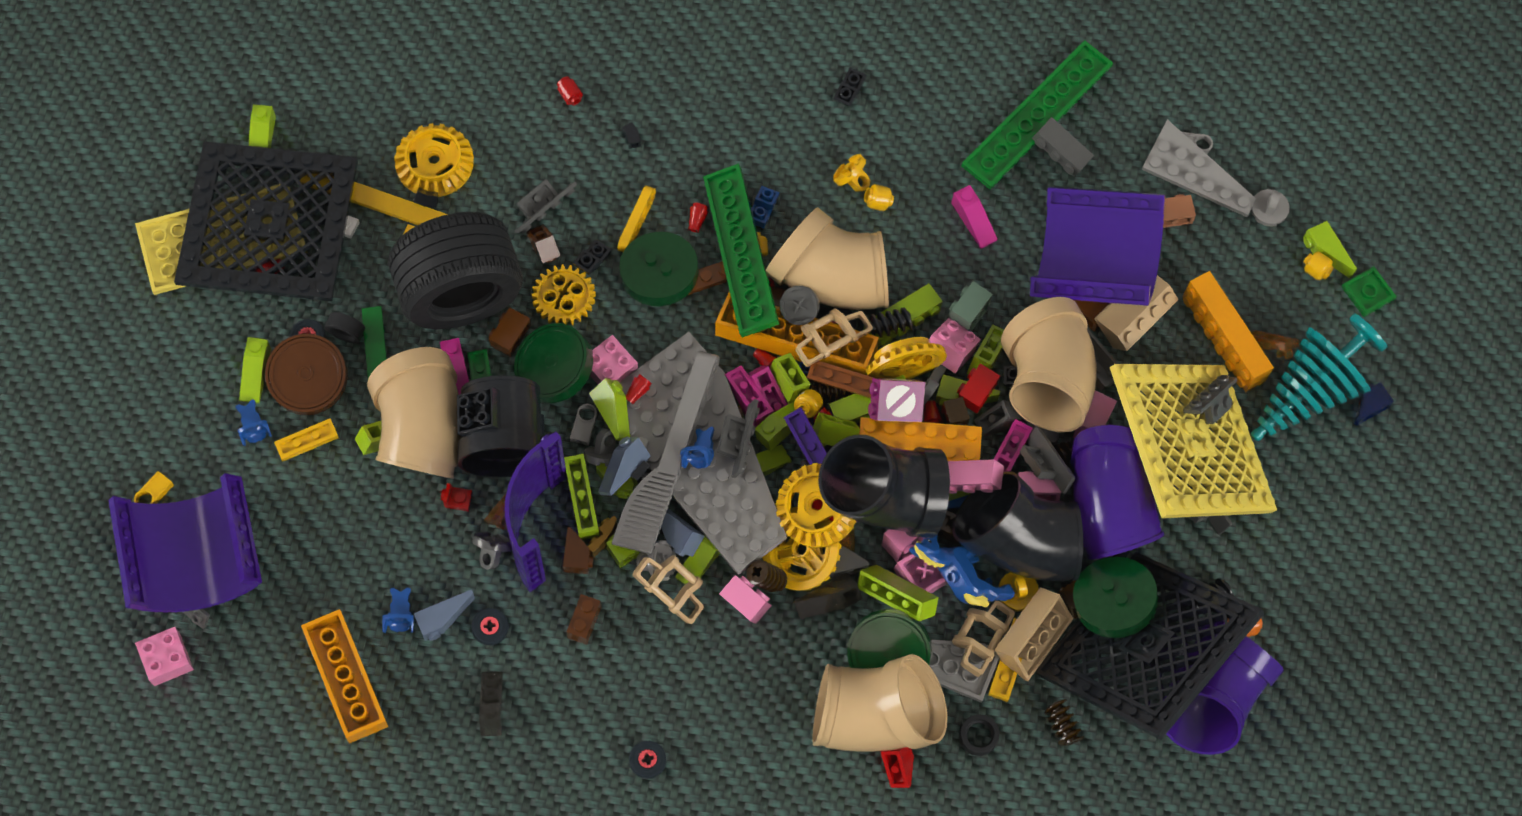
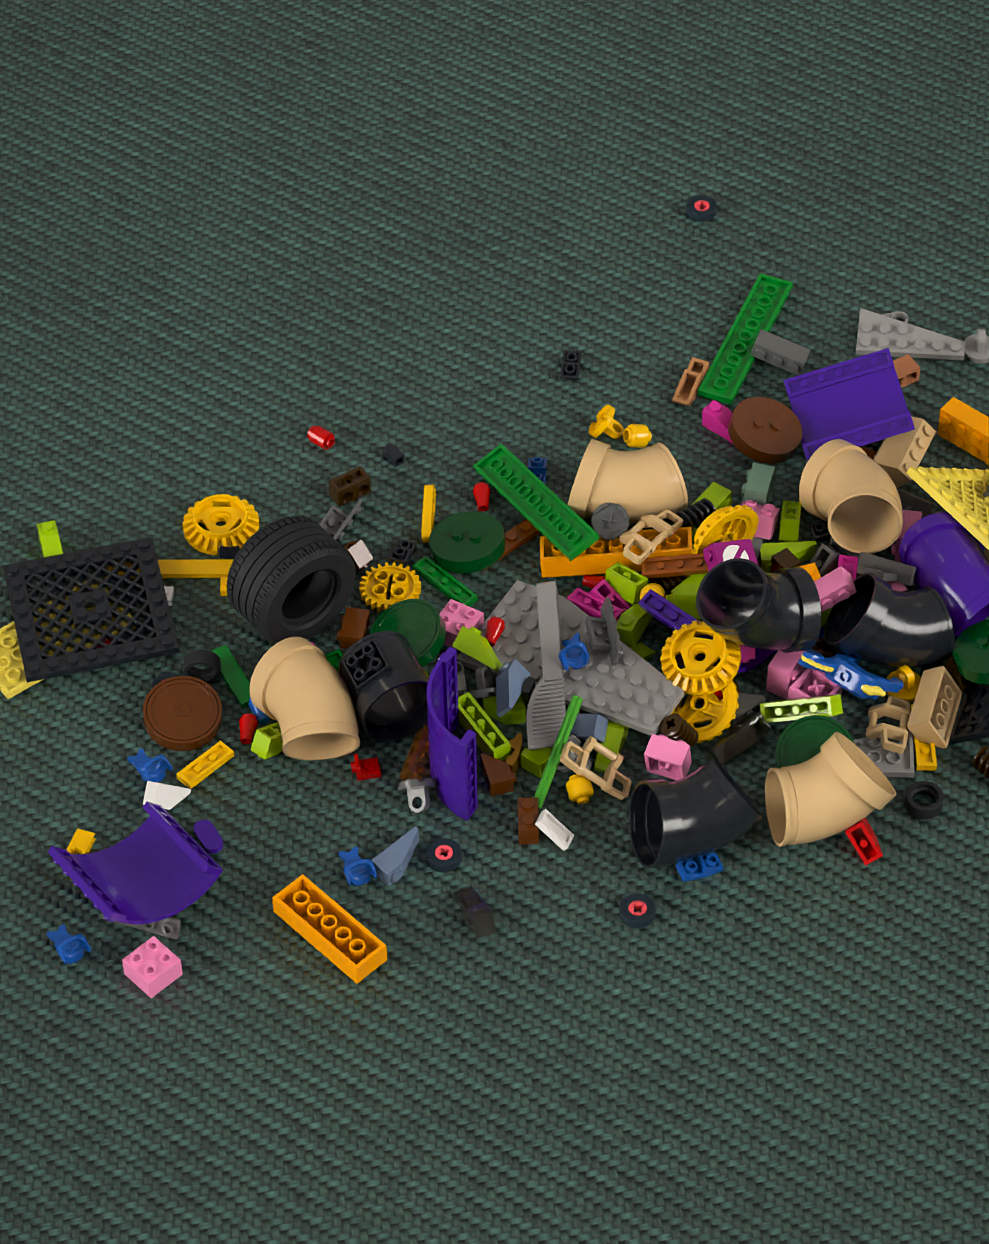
camera: 15 degrees left, 20 degrees down
(98, 604) = (69, 947): none -> blue hair
(252, 463) = (164, 794): none -> white slope
(253, 370) = (130, 724): lime slope -> none
(277, 522) = (208, 836): none -> dark purple tile
(362, 412) = (248, 725): none -> red cone
(571, 162) = (349, 486): none -> dark brown brick
(603, 641) = (554, 829): none -> white tile
(621, 305) = (444, 581): none -> green tile
(646, 547) = (555, 755): none -> bright green axle
(647, 602) = (579, 789): none -> yellow head
(728, 731) = (700, 867): none -> blue slope
(738, 682) = (688, 816): none -> black cylinder
(959, 150) = (691, 381): none -> medium nougat slope
(978, 388) = (796, 538): red brick -> none
(1007, 237) = (765, 430): none -> reddish brown brick

